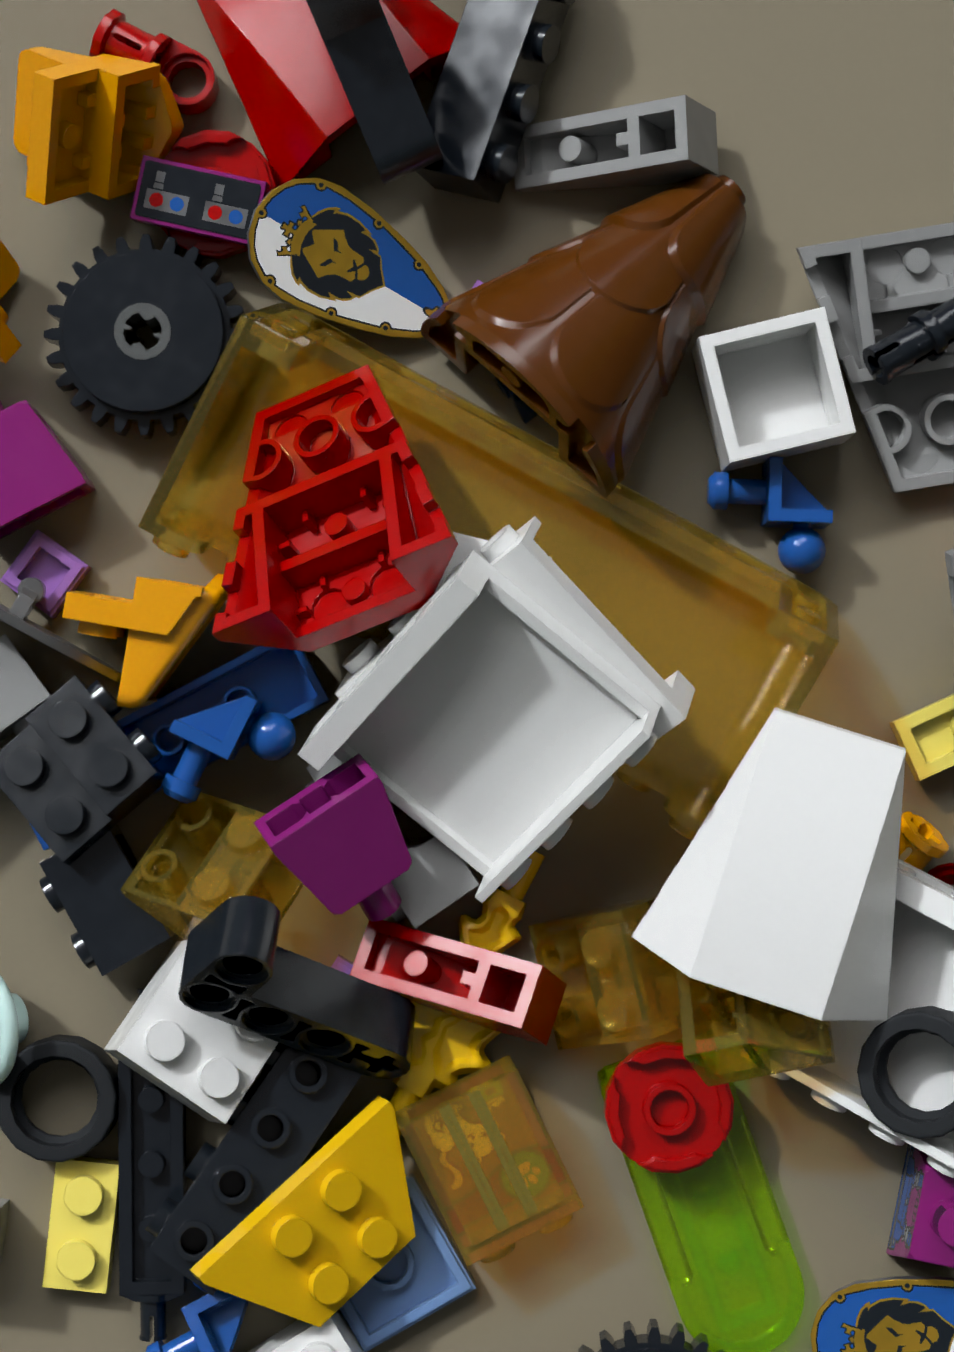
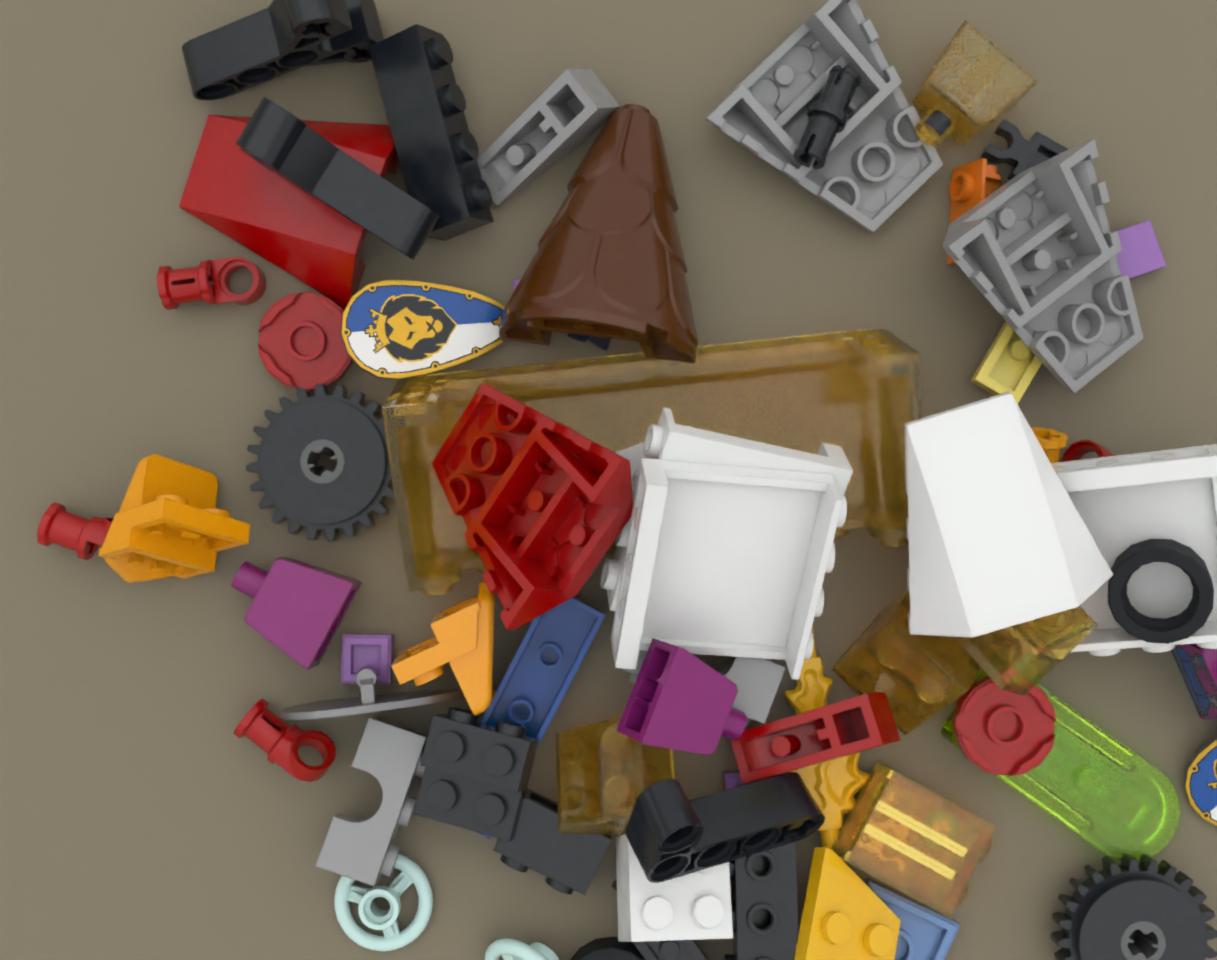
camera: 30 degrees left, 0 degrees up
(90, 122) = (196, 350): light orange piece -> none
(196, 200) = (298, 352): tile -> none
(222, 733) = (553, 687): blue piece -> none
(773, 389) = (752, 219): white piece -> none
(783, 505) = (806, 288): blue piece -> none

